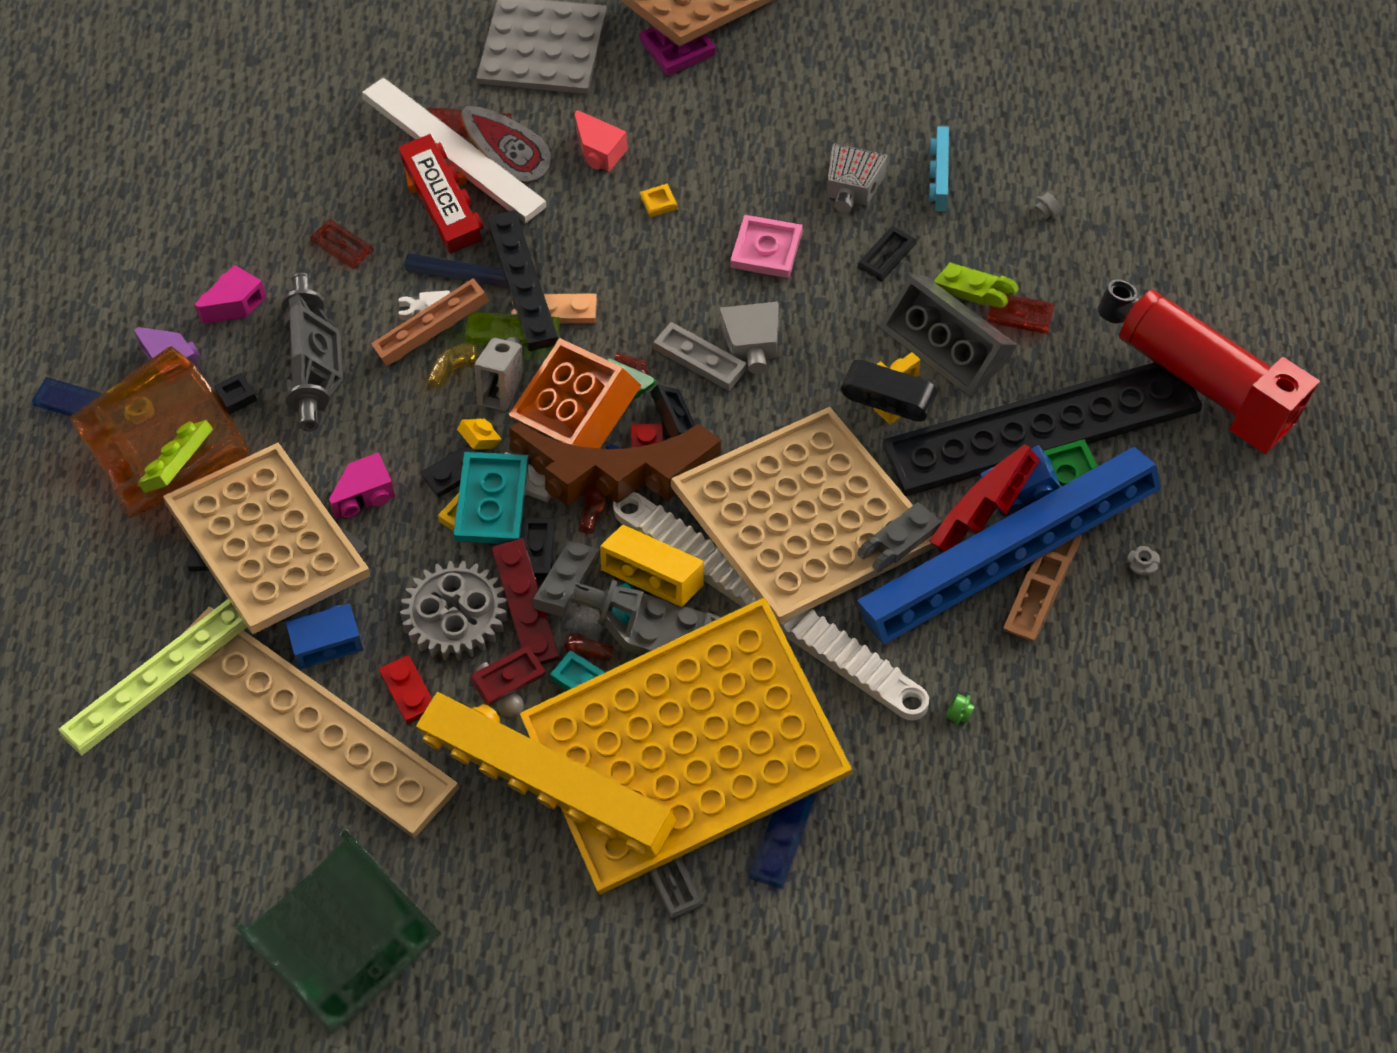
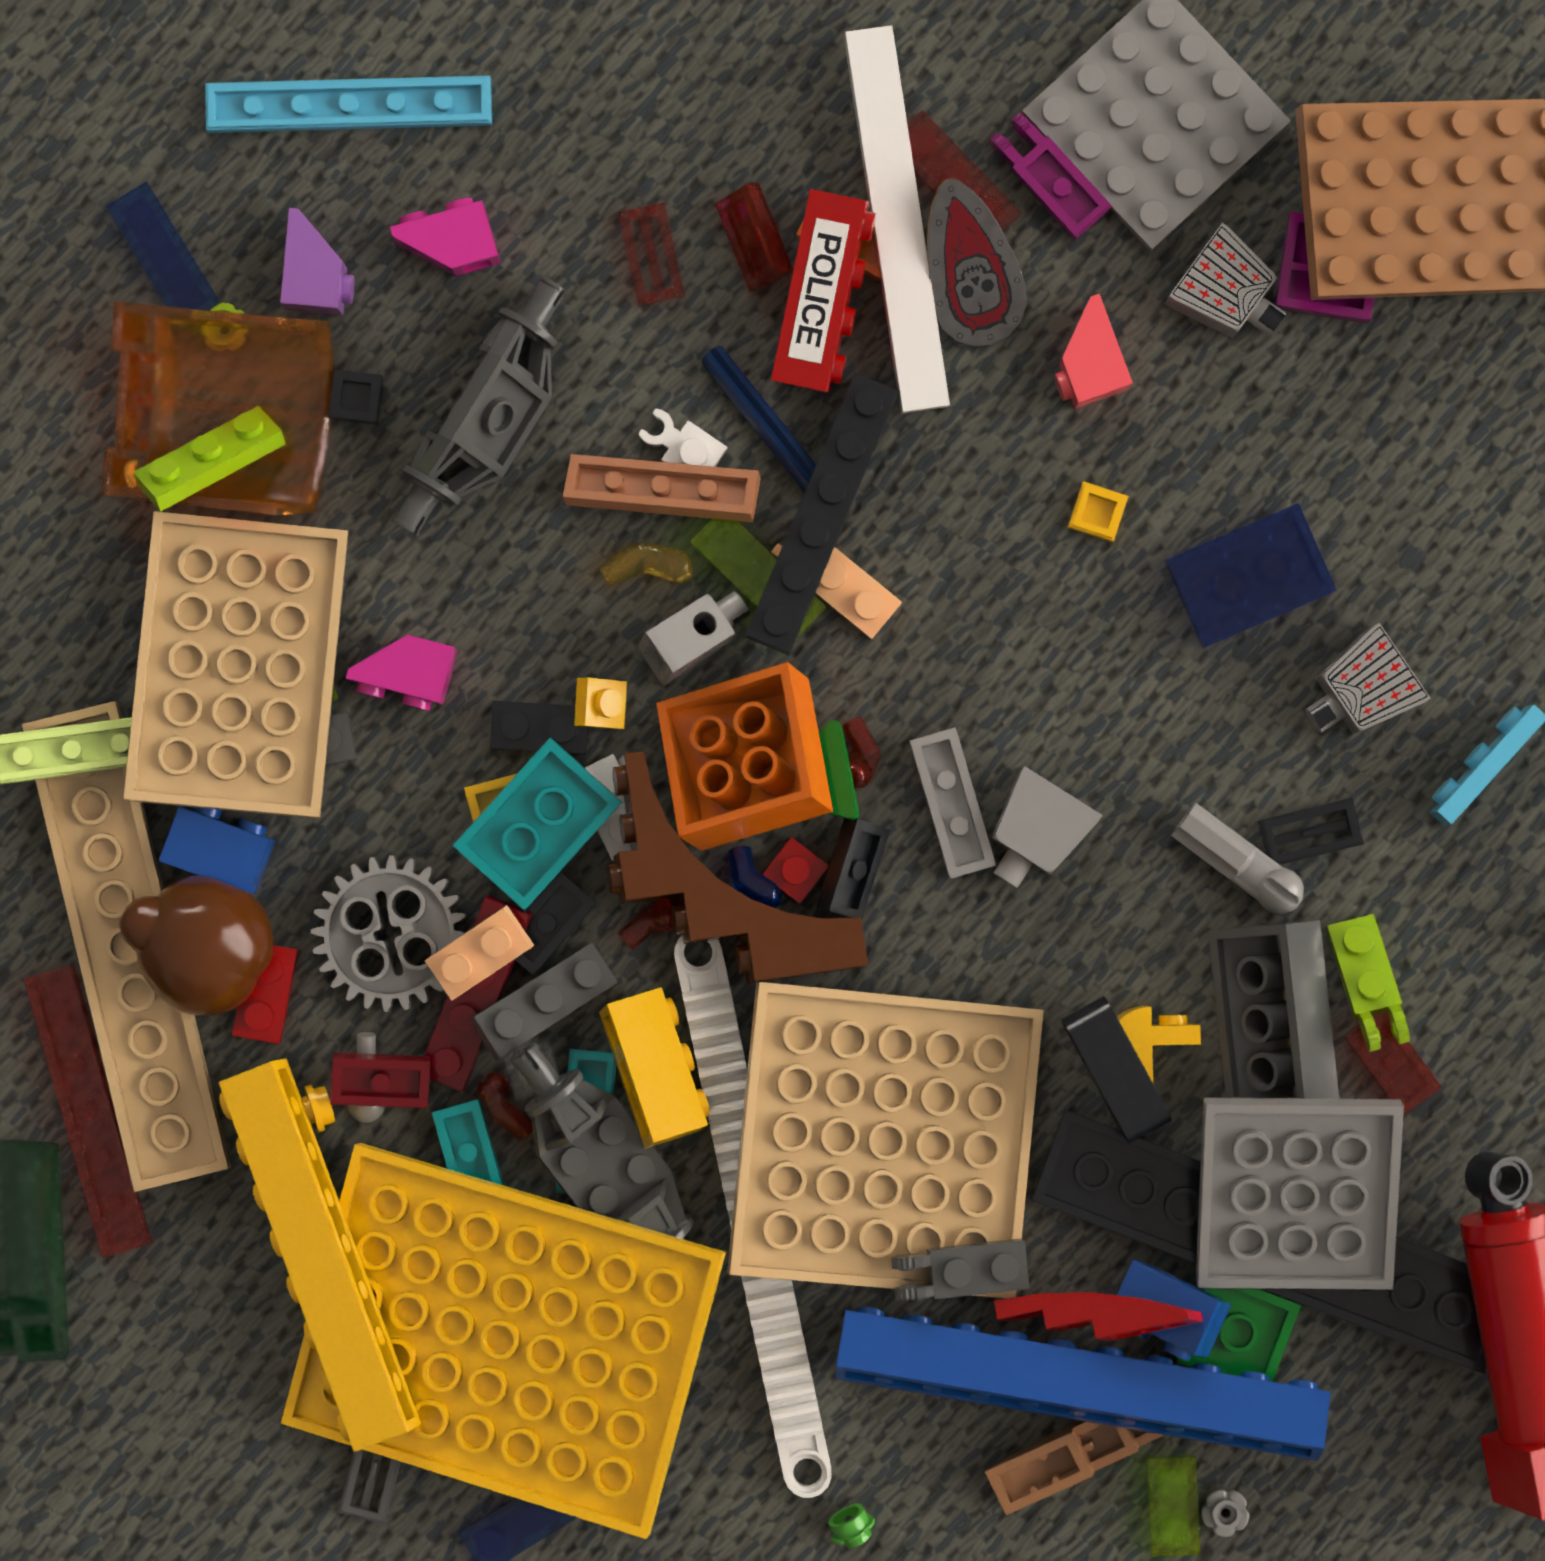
camera: 35 degrees right, 30 degrees up
(130, 283) = (348, 104): none -> medium azure tile
(350, 672) = (200, 943): none -> reddish brown piece
(351, 813) = (87, 1110): none -> clear red plate
(387, 201) = (754, 237): none -> clear red plate
(510, 569) = (479, 952): none -> light nougat plate
(513, 93) = (1053, 179): none -> magenta hinge
(637, 77) = (1227, 287): none -> light grey torso
(756, 174) = (1250, 575): none -> clear blue plate
(766, 246) = (1169, 702): bright pink plate -> none
(861, 283) = (1209, 838): none -> light grey piece
(1030, 377) = (1299, 1193): none -> light grey plate
(1115, 578) = (1173, 1505): none -> clear neon green plate

